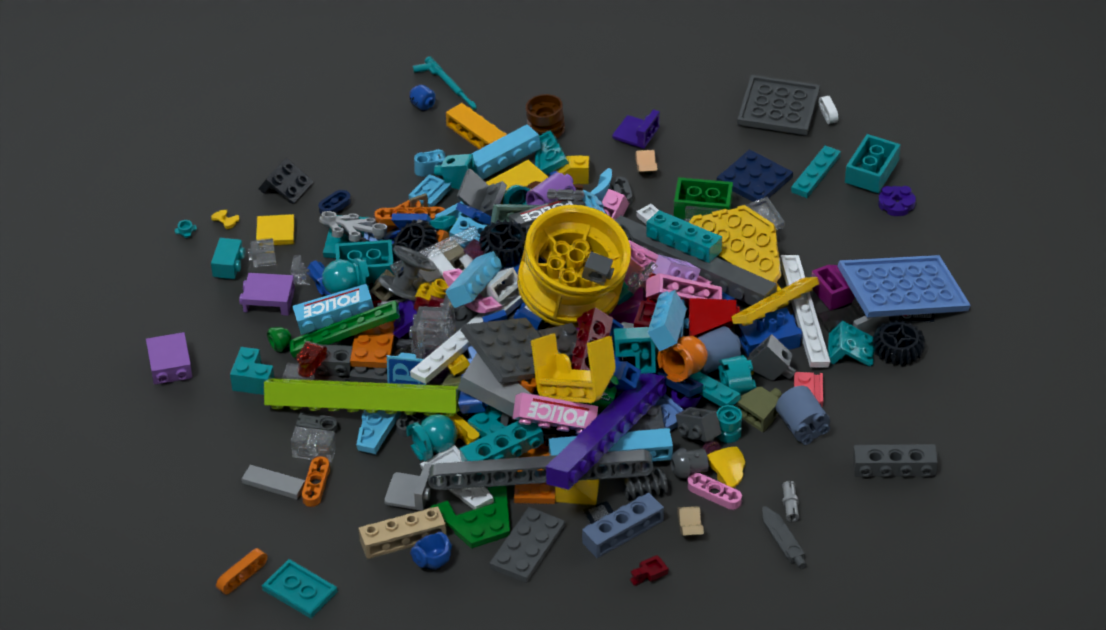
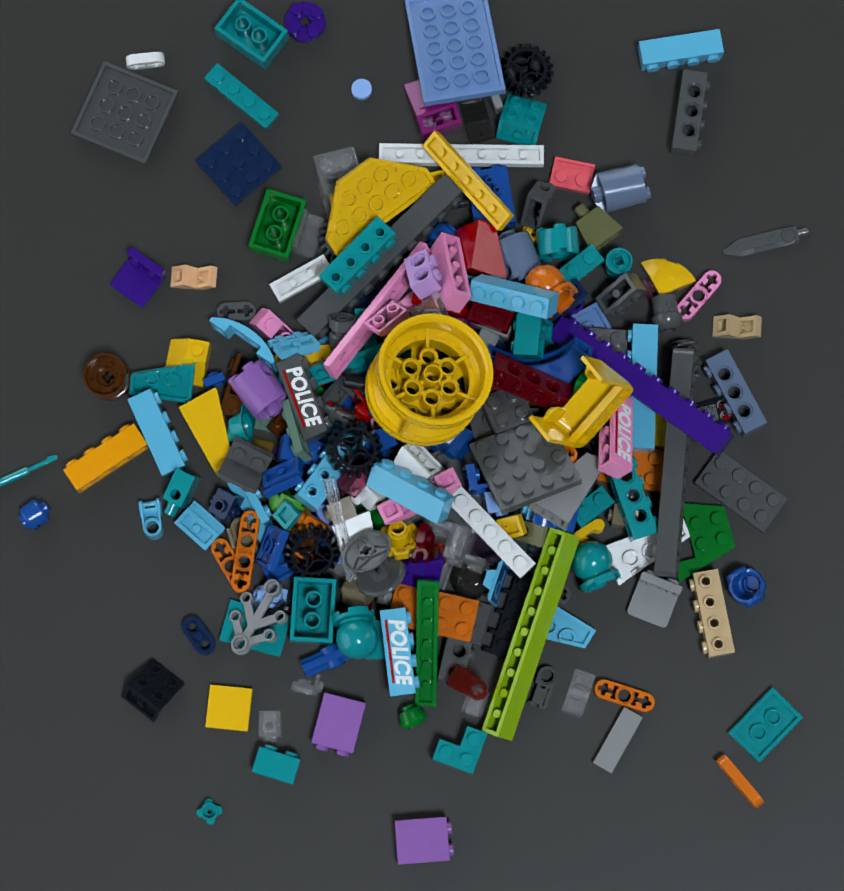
camera: 80 degrees left, 35 degrees up
(228, 222) = (203, 762): yellow piece -> none
(447, 197) = (225, 505): none -> dark blue brick
(565, 194) = (283, 372): flat silver axle -> none
(598, 269) = (473, 353): dark grey brick -> none
(650, 568) = (795, 375): dark red plate -> none
(790, 501) = (725, 224): light grey pin -> none
(846, 242) = (361, 89): none -> light blue tile
(956, 447) = (680, 50): none -> medium azure brick

